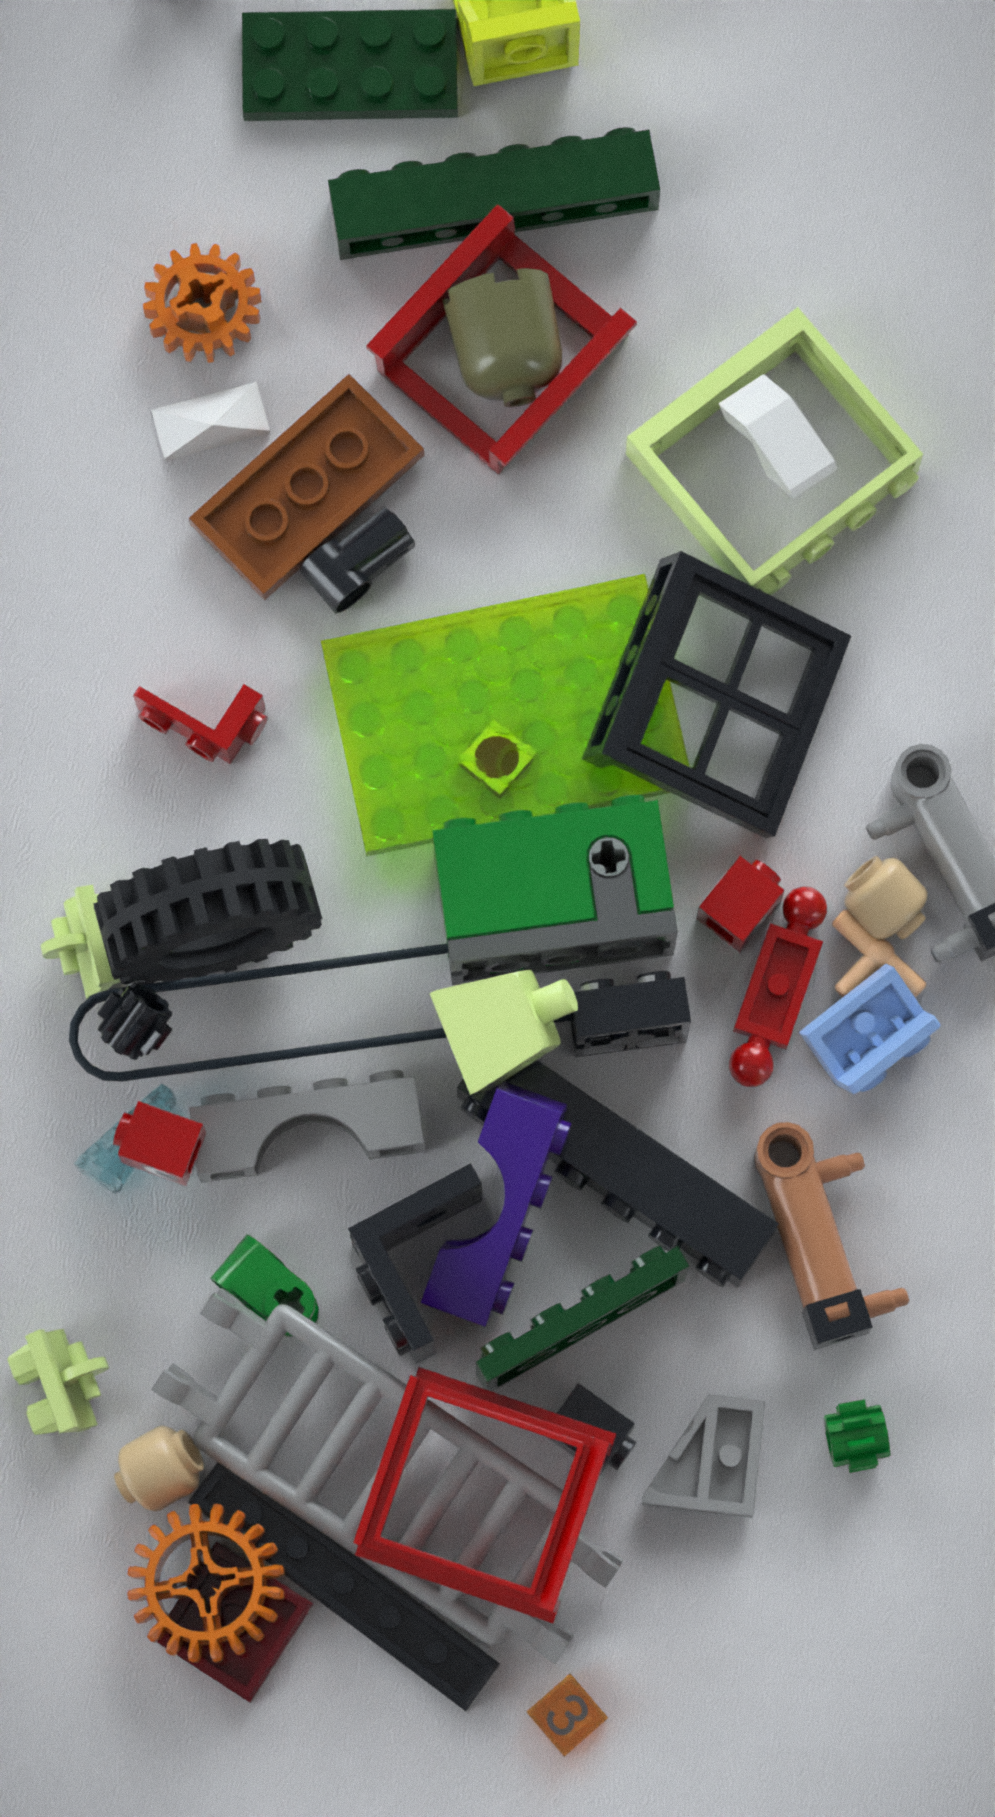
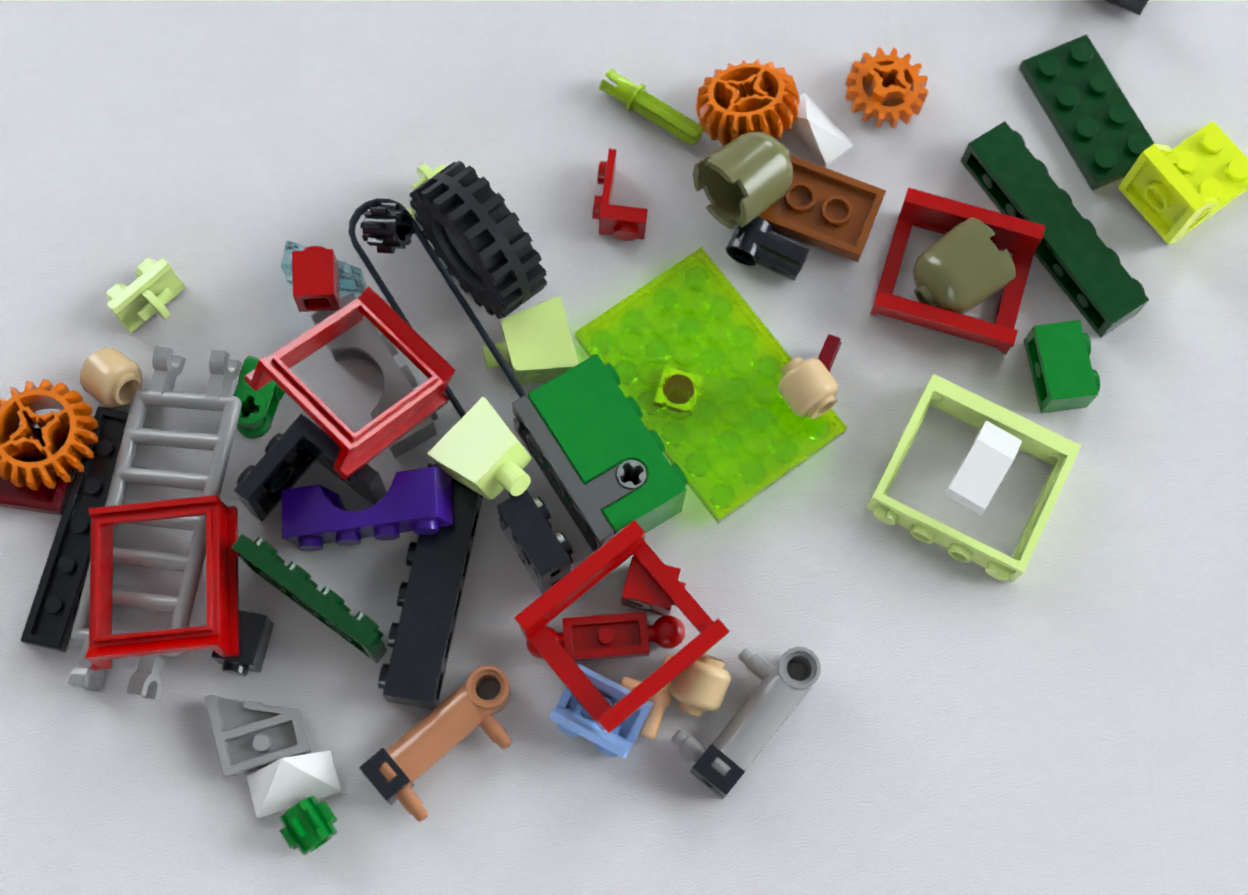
camera: 60 degrees right, 5 degrees down
(87, 615) = (652, 108): none -> lime axle
(179, 490) = (747, 100): none -> orange gear
(251, 1167) = (390, 425): none -> red piece
(267, 541) = (744, 178): none -> olive cylinder
(361, 905) = (536, 343): none -> yellowish green torso
(543, 558) = (829, 351): none -> dark red tile
(567, 1715) = (42, 710): clear orange tile -> none
(580, 596) = (808, 387): none -> tan head
(651, 661) = (787, 452): black window -> none
(680, 277) = (1061, 366): none -> green brick
(793, 1439) = (293, 780): none -> white slope
(871, 939) = (579, 581): none -> red piece

